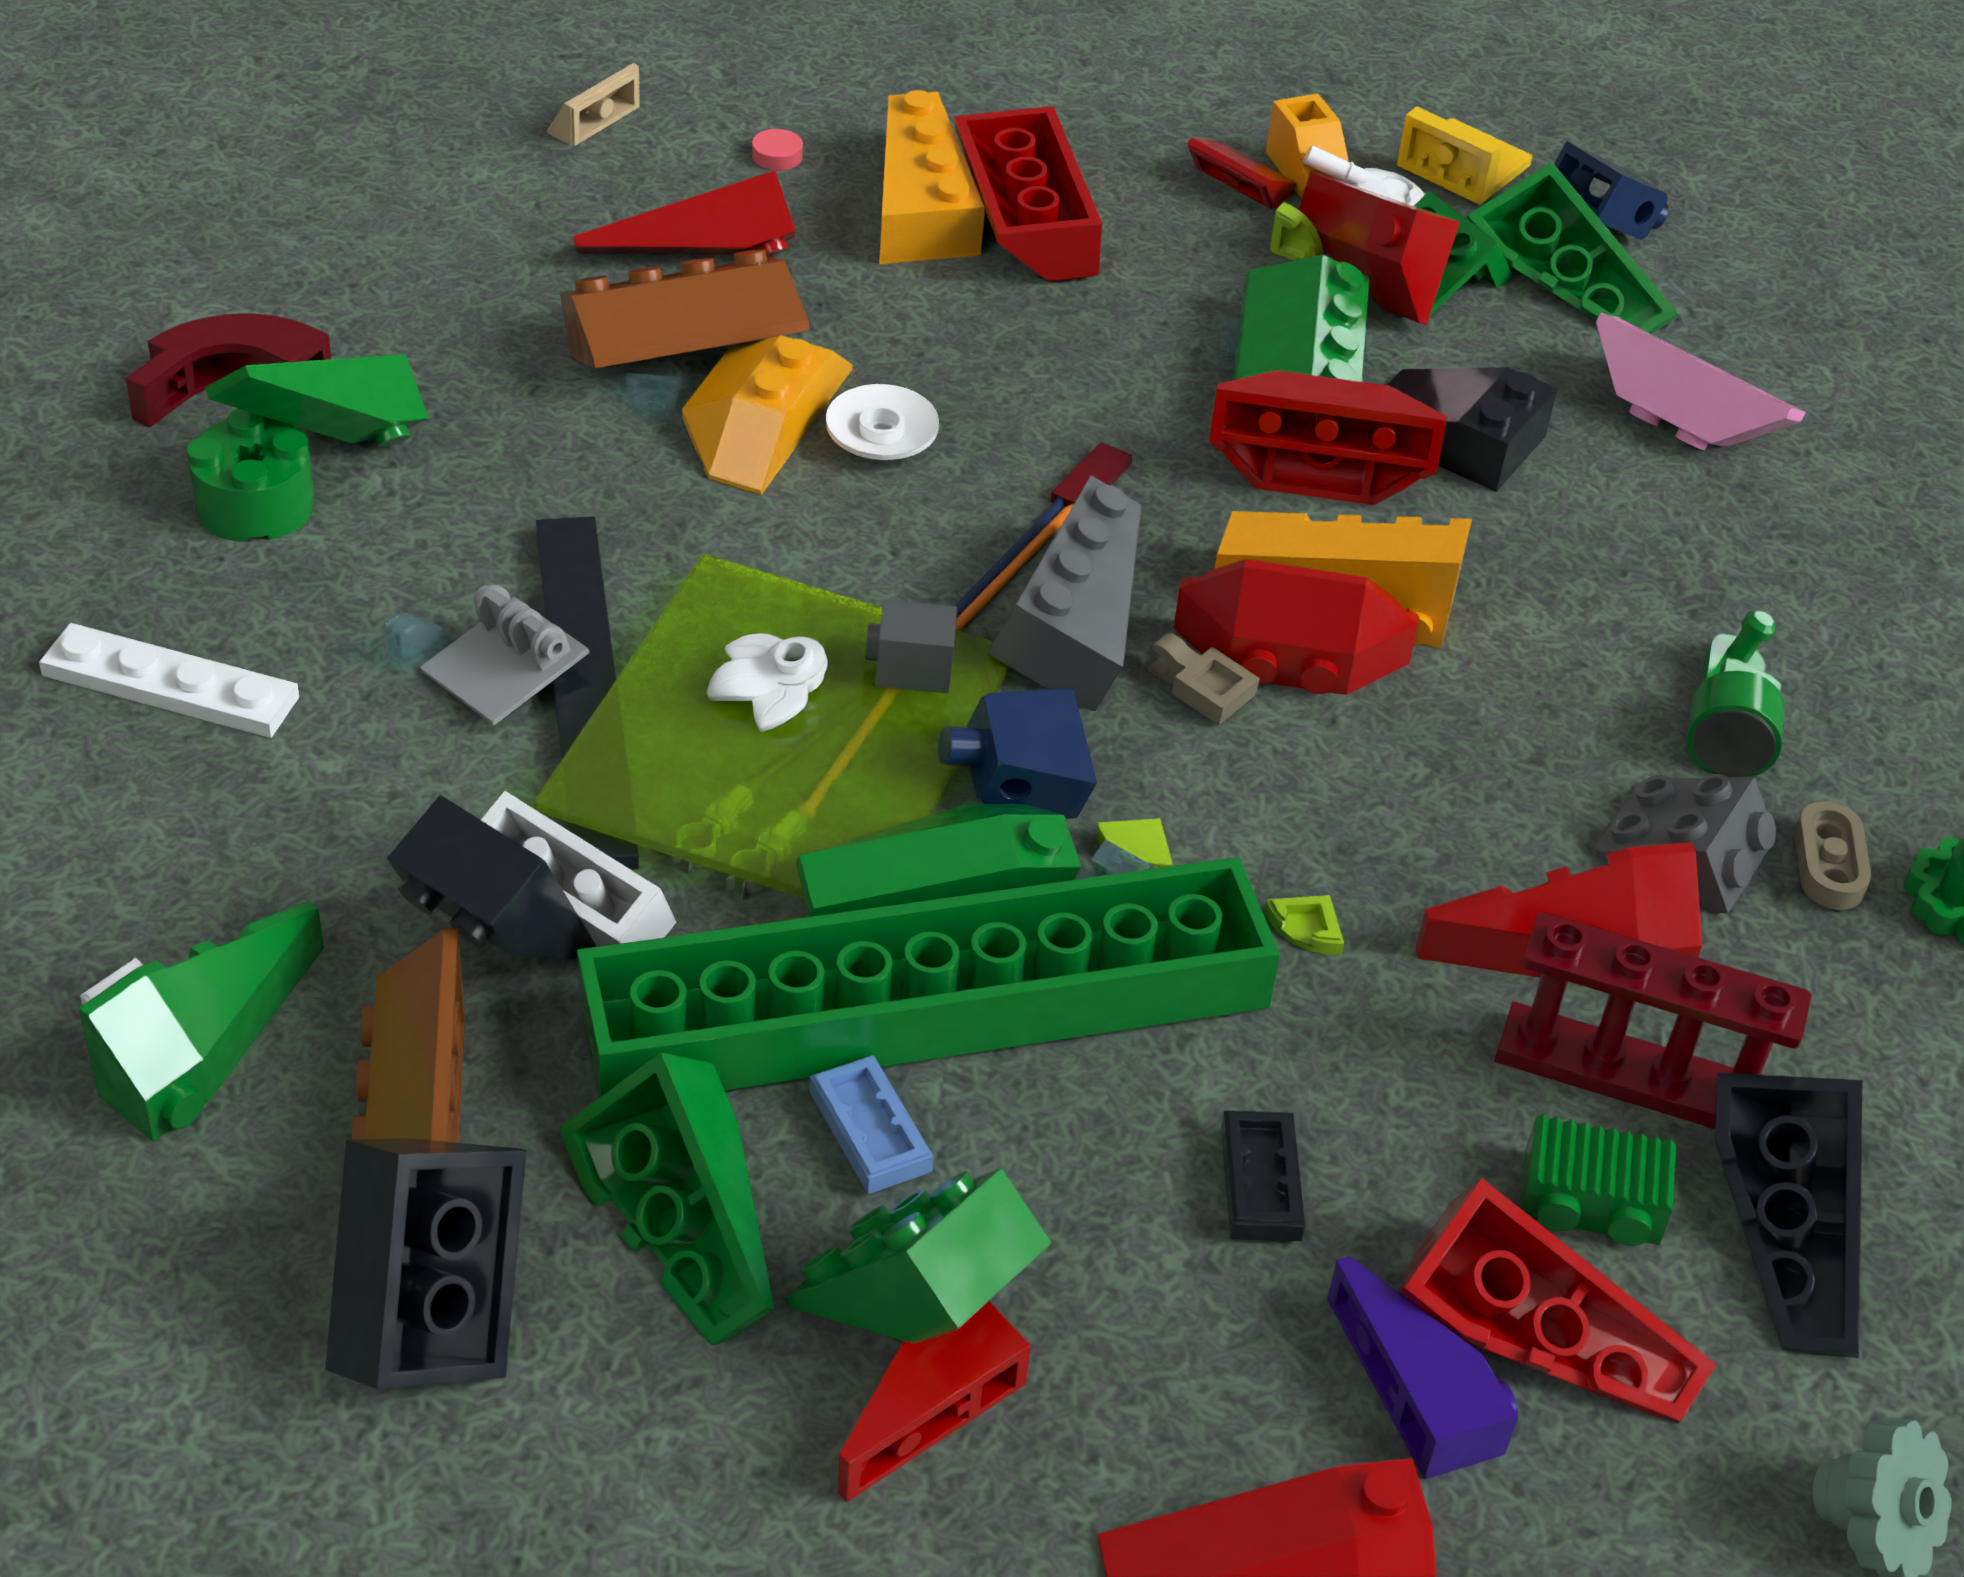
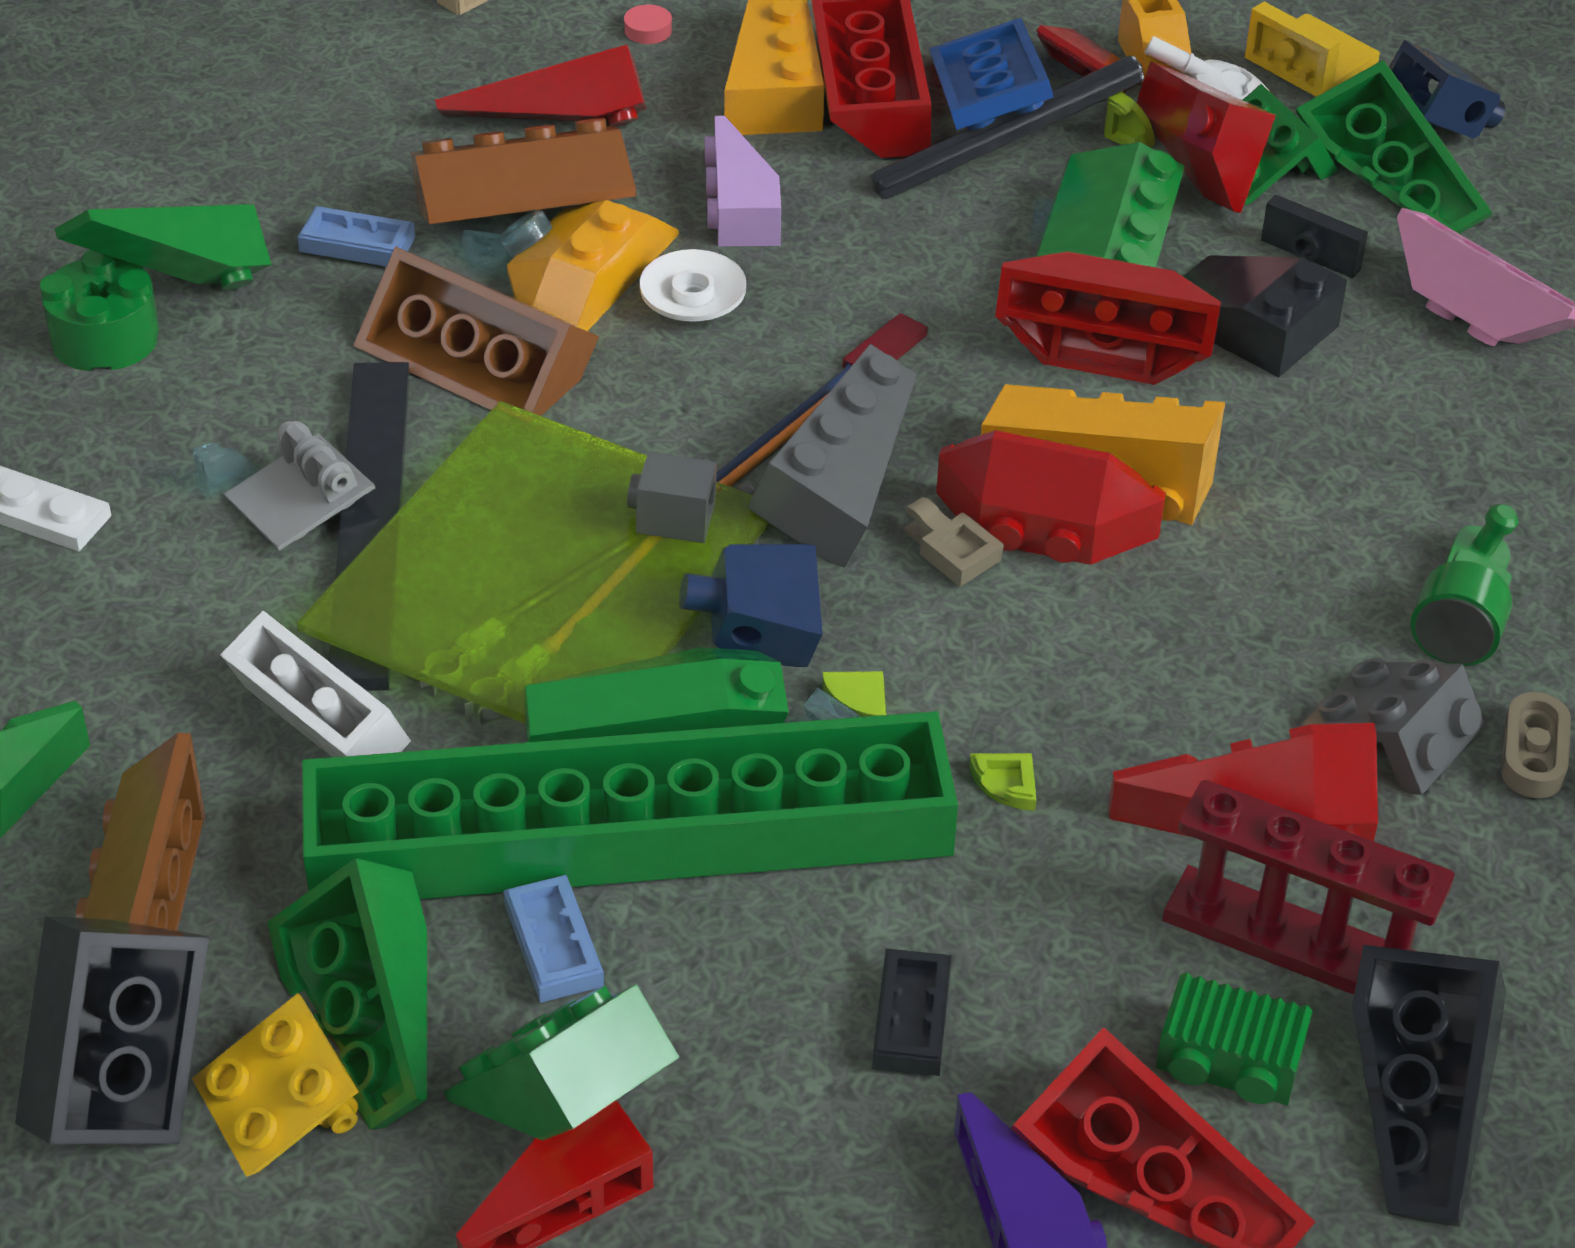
camera: 10 degrees right, 0 degrees up
(210, 348) = (84, 187): dark red arch -> none
(486, 885) = (225, 697): black slope -> none
(512, 385) = (354, 236): none -> medium blue plate
(606, 1307) = (277, 1087): none -> yellow hinge
(659, 486) = (472, 337): none -> dark orange slope
(696, 373) = (525, 232): none -> clear light blue tile
(771, 675) = (536, 517): white plate -> none
(915, 319) = (740, 190): none -> lavender slope
(1153, 190) = (991, 75): none -> blue plate
(1177, 245) = (1006, 128): none -> black axle
(1506, 343) = (1314, 236): none -> black plate

